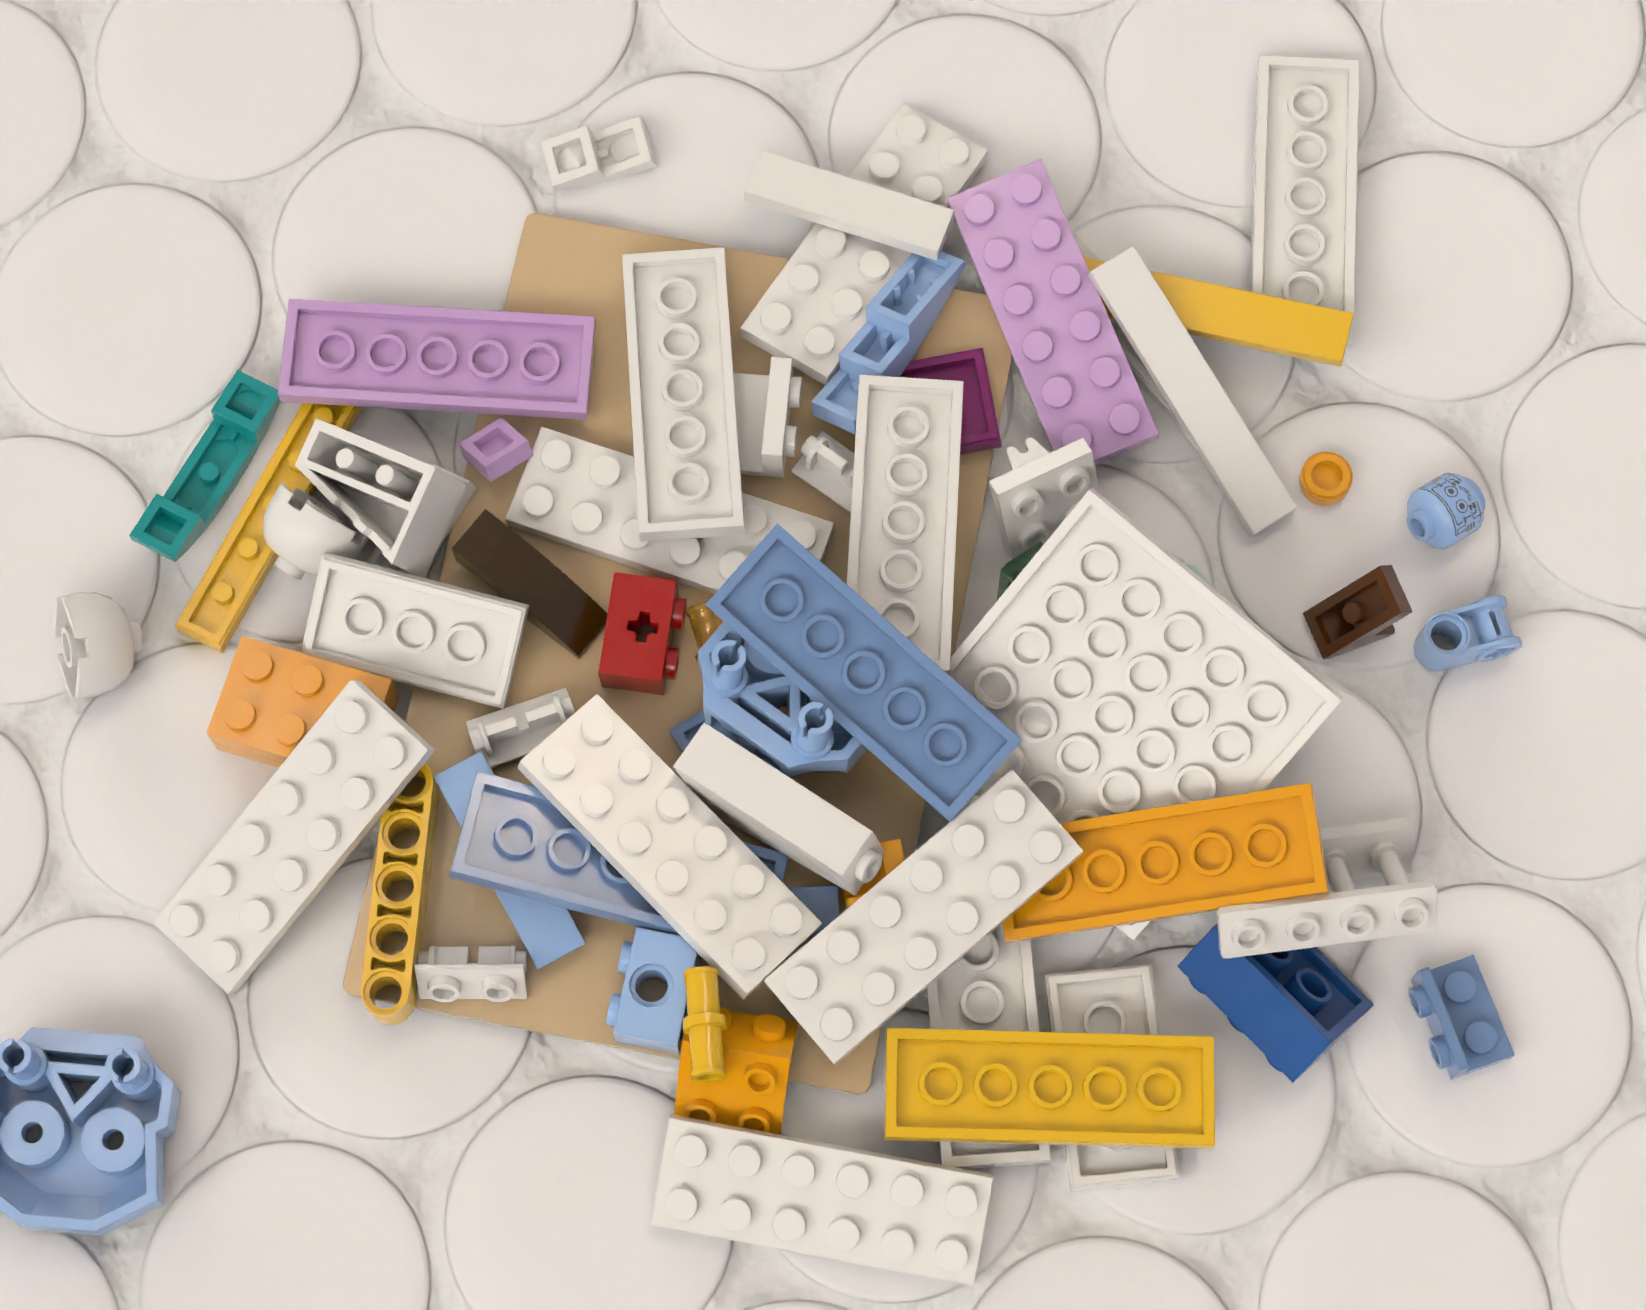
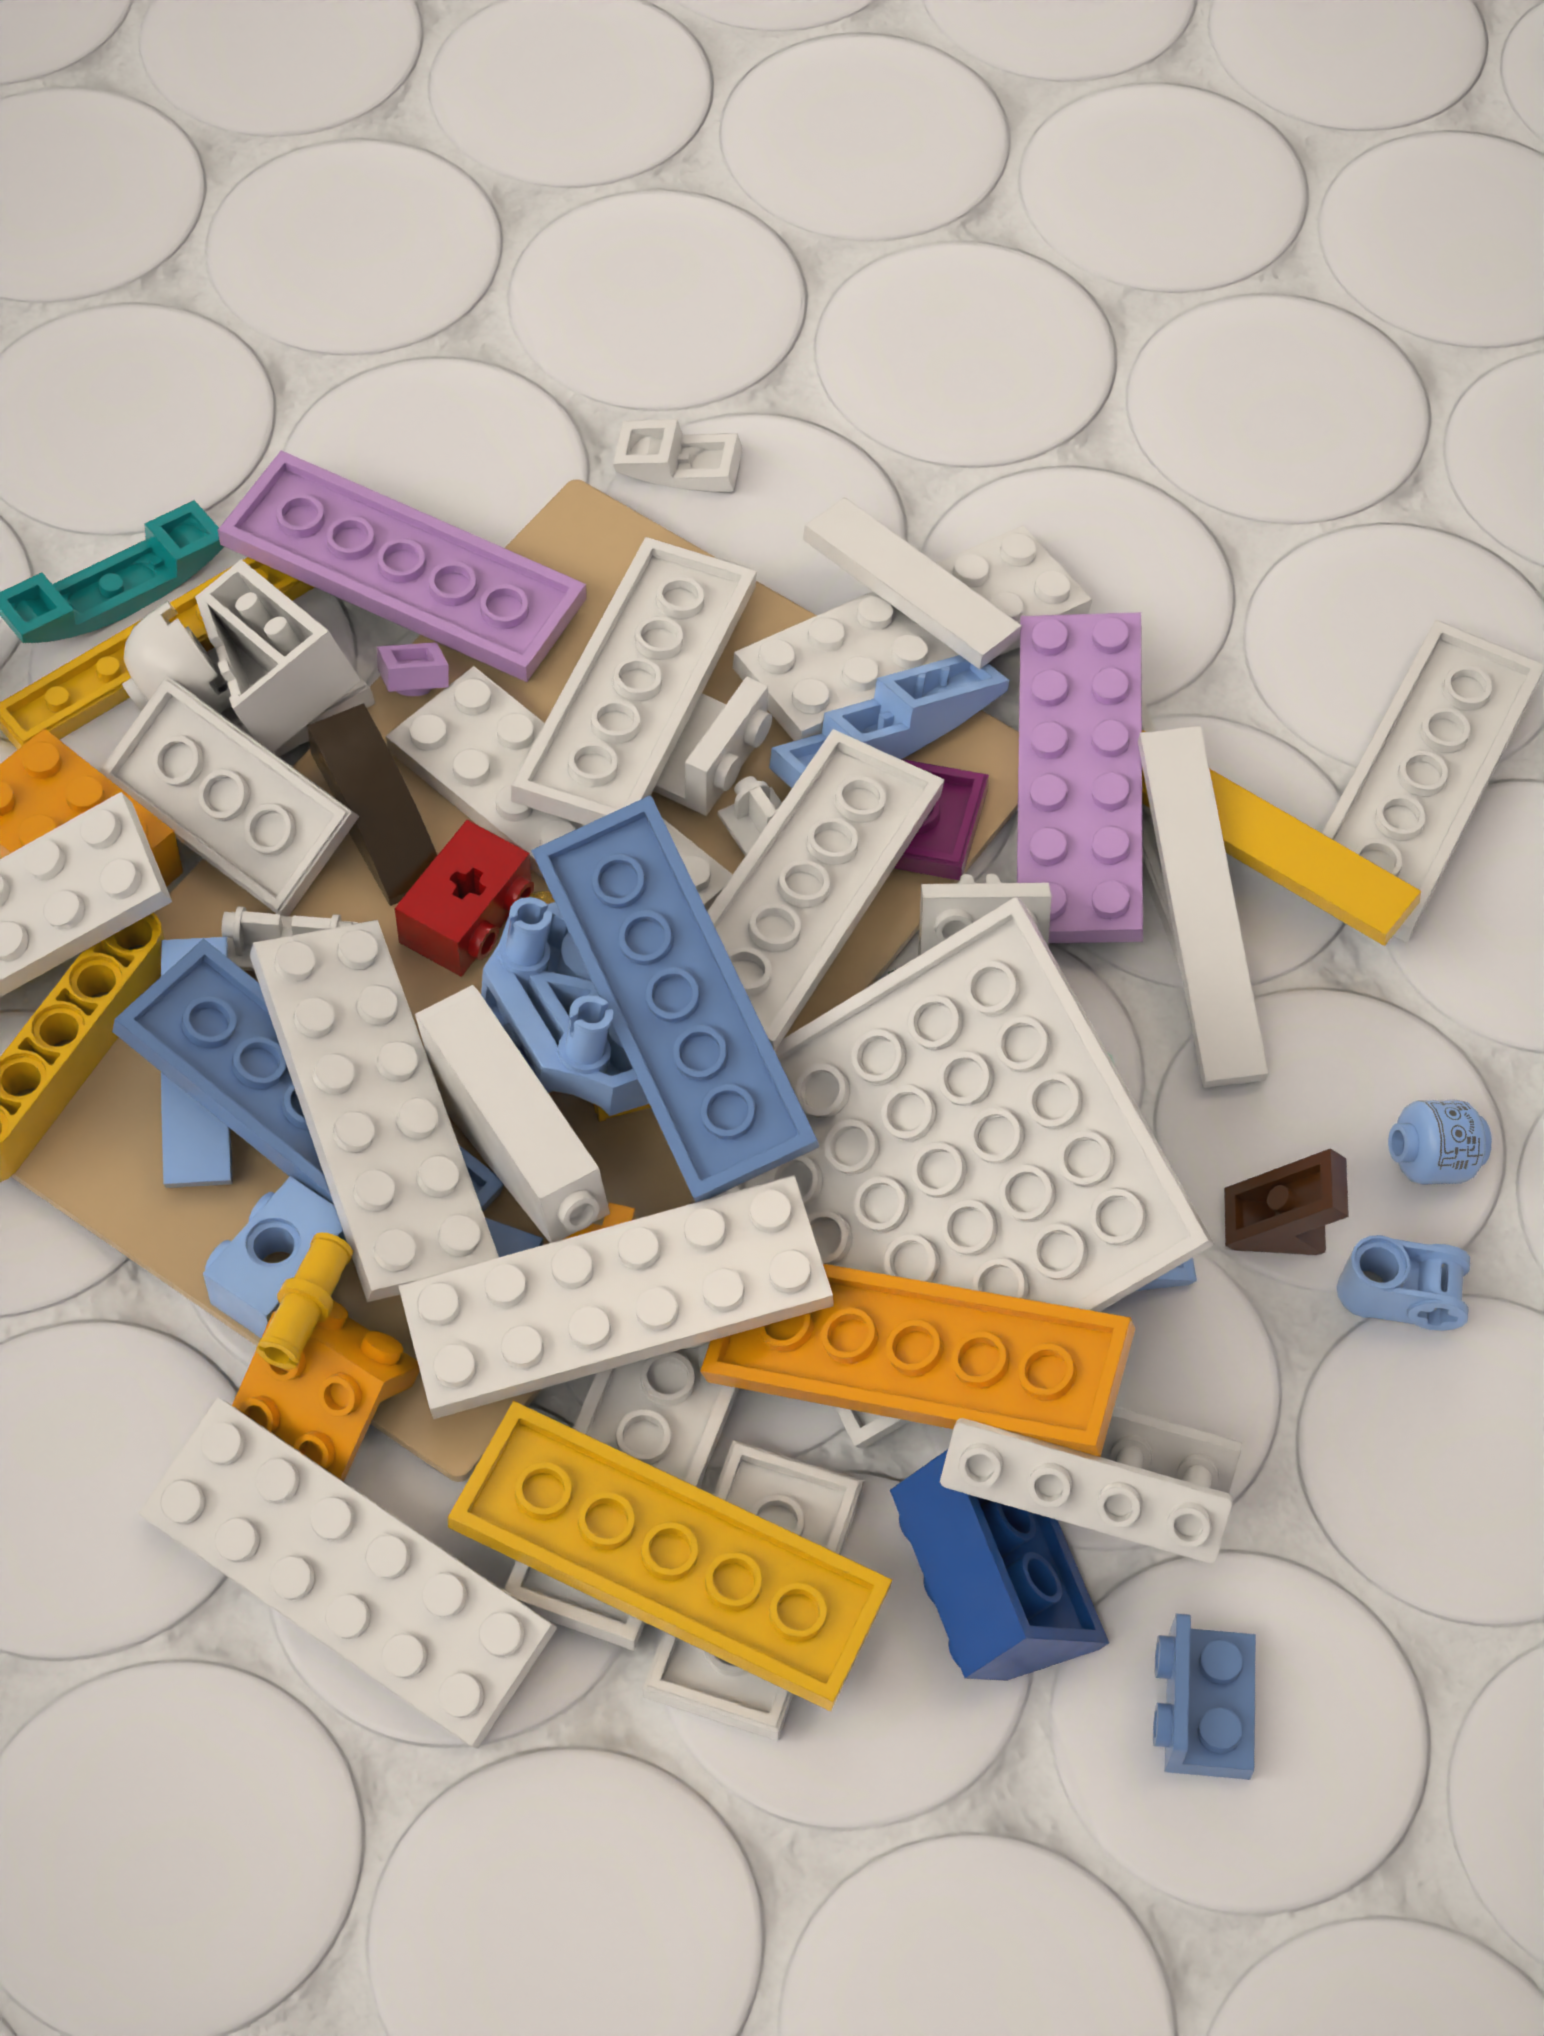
camera: 20 degrees right, 15 degrees down
(447, 975) = (77, 1159): white hinge -> none
(1325, 478) = (1316, 1061): light orange tile -> none

